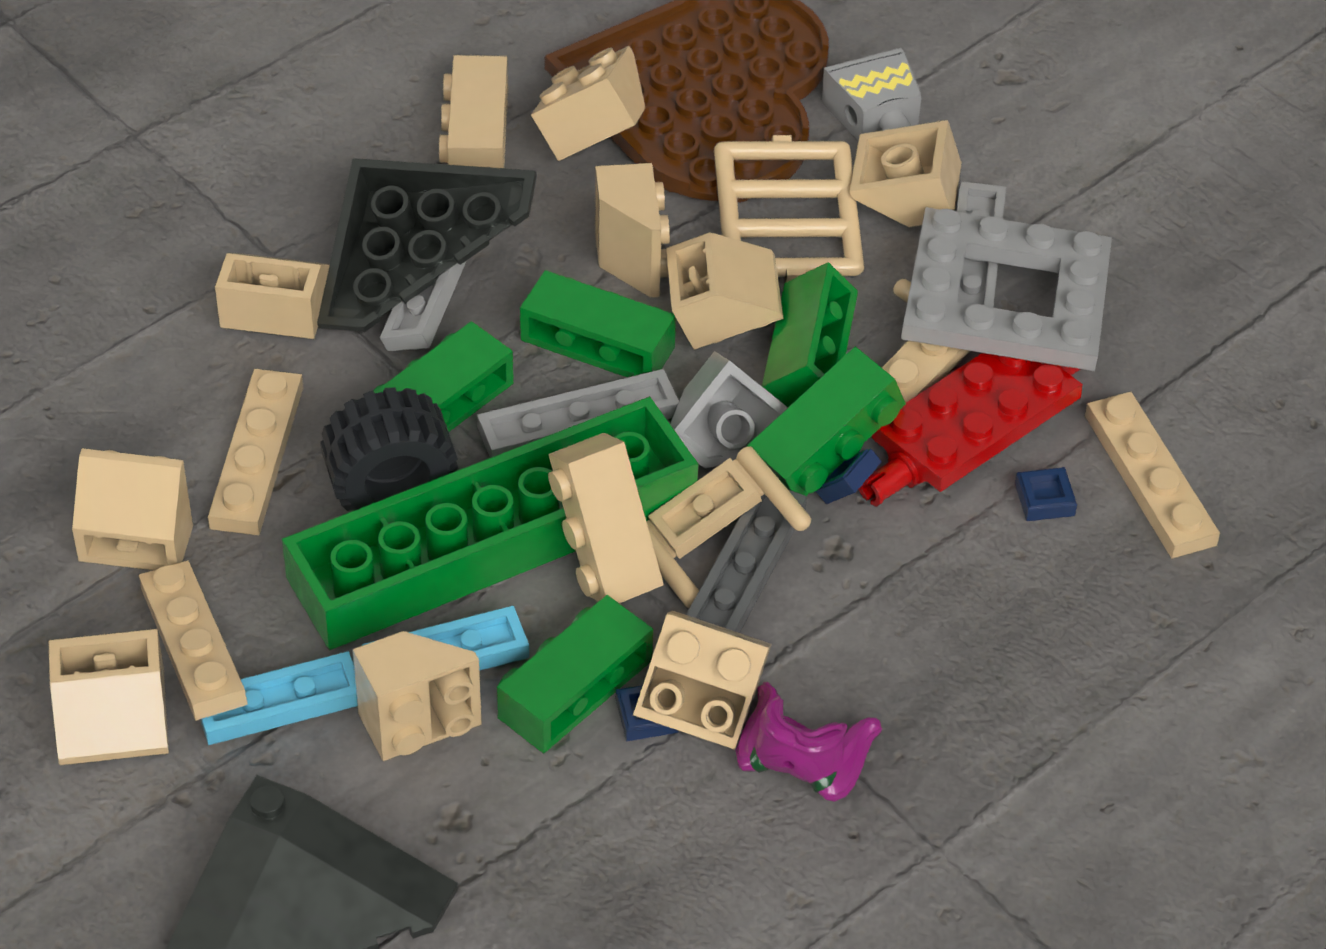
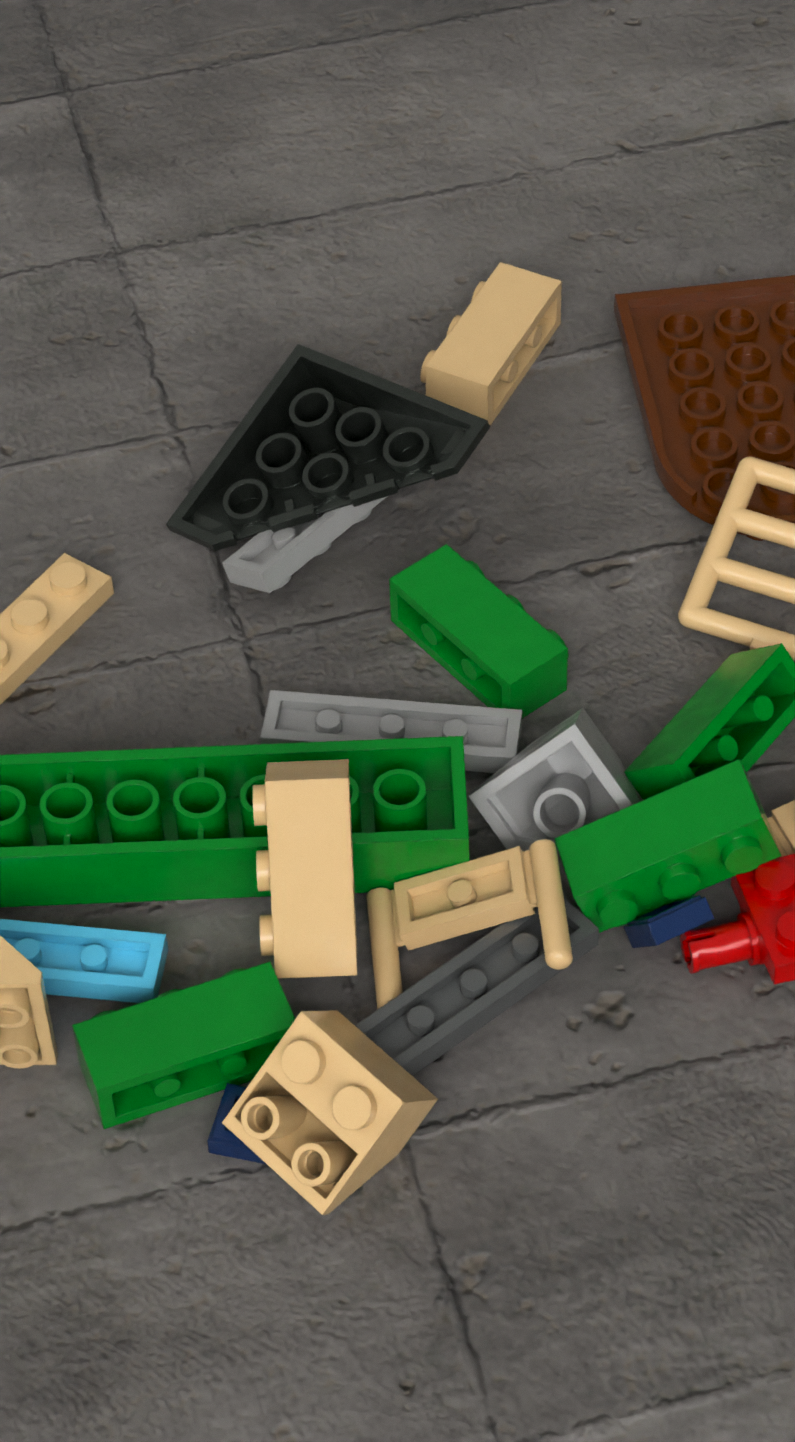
camera: 30 degrees right, 0 degrees up
(270, 294) = (128, 470): tan slope -> none
(385, 446) = (122, 689): black tyre -> none
(459, 373) = (248, 648): green brick -> none
(590, 102) = (622, 363): tan slope -> none
(630, 225) = (583, 521): tan slope -> none
(722, 287) = (645, 633): tan slope -> none
(824, 757) = (399, 1254): magenta hair -> none

